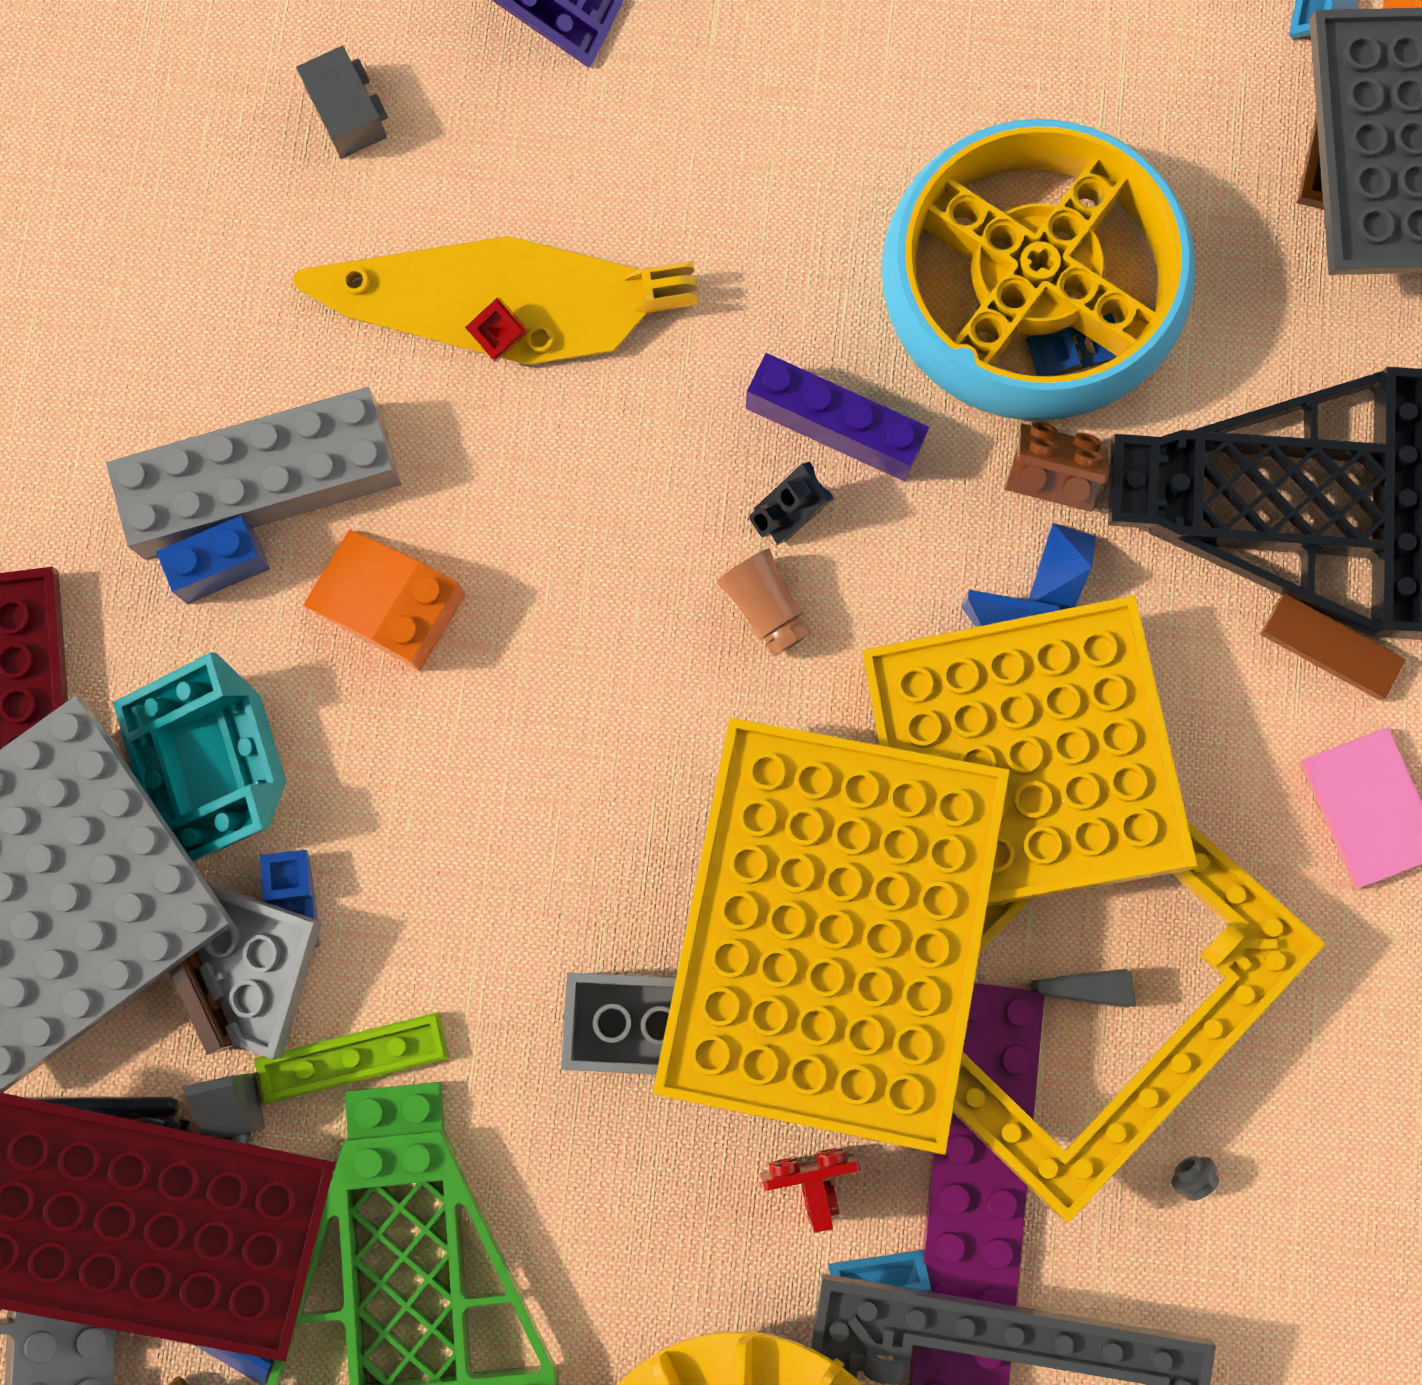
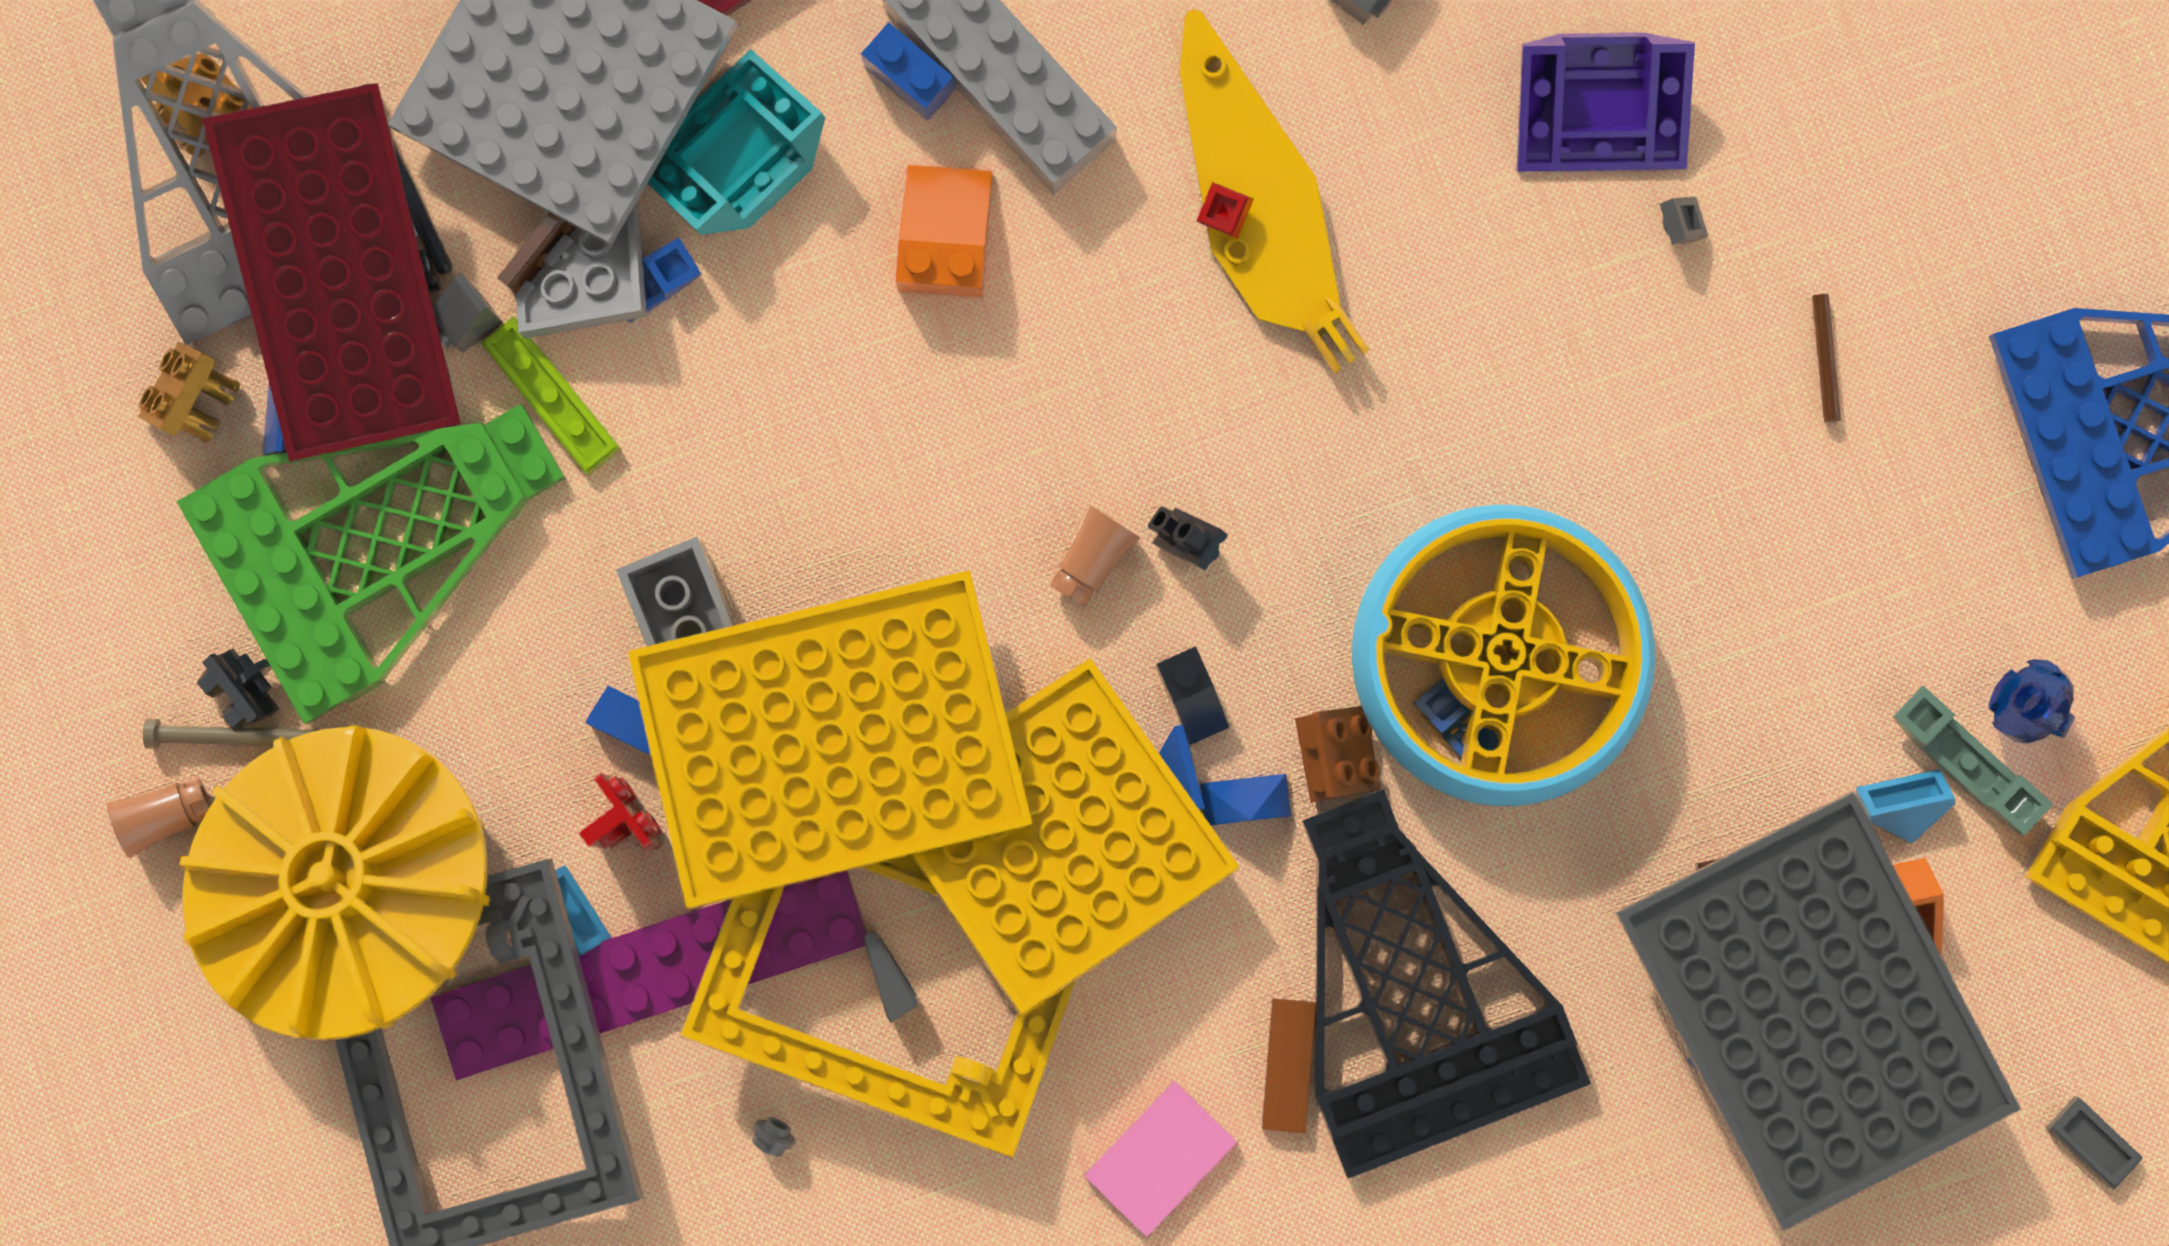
camera: 65 degrees right, 5 degrees up
(712, 1134) = (620, 718): none -> blue slope
(835, 417) = (1287, 540): dark purple brick -> none
(938, 570) = (1192, 695): none -> black slope

